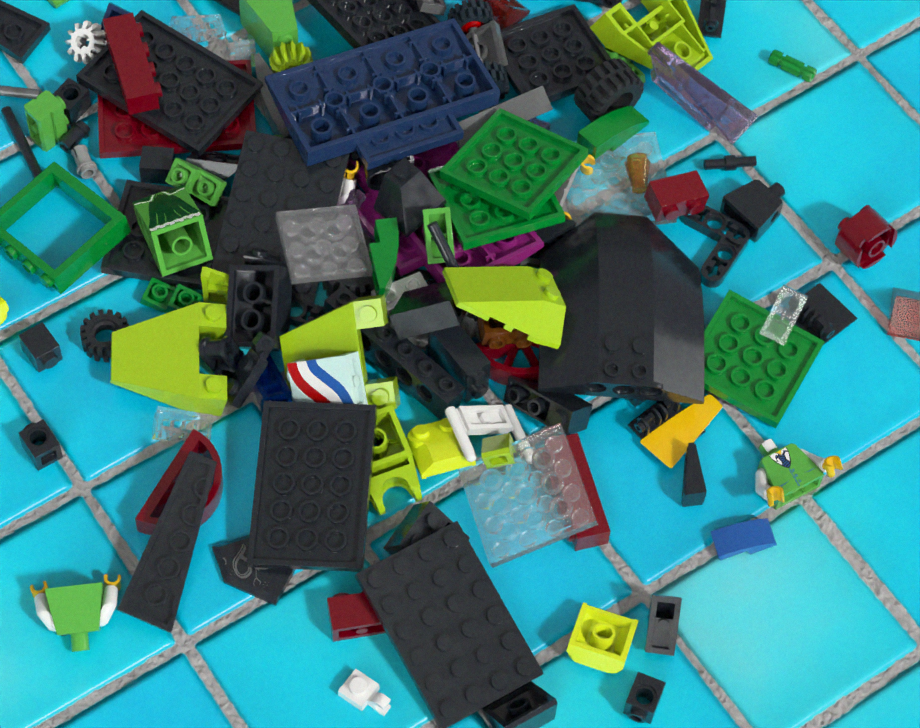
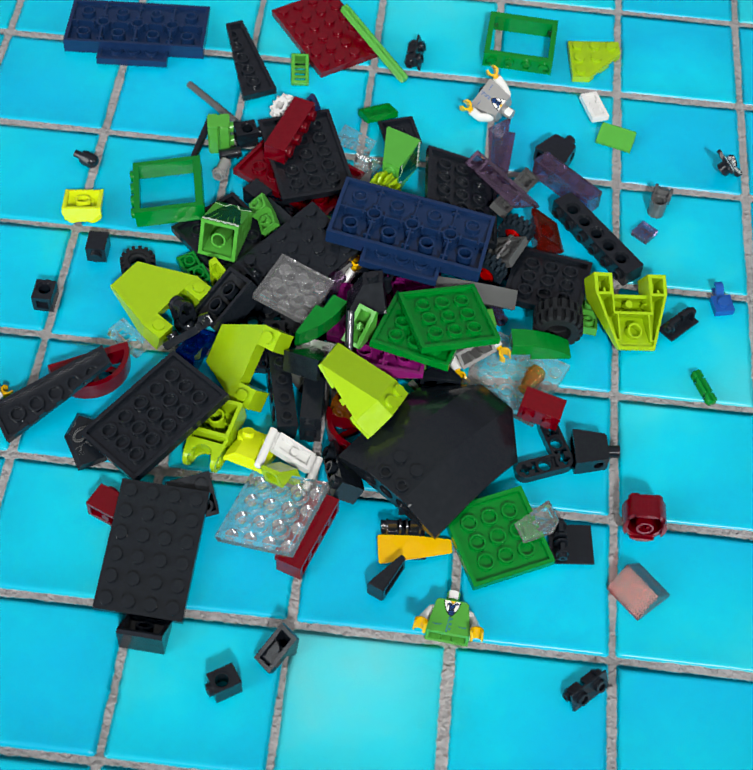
camera: 40 degrees right, 5 degrees down
(328, 380) = (221, 365): panel -> none
(363, 691) = (71, 552): white plate -> none
(601, 639) = (233, 628): neon yellow slope -> none
(699, 95) = (617, 362): wedge -> none
(729, 162) = (602, 416): black bar -> none
(743, 537) = (383, 637): blue slope -> none

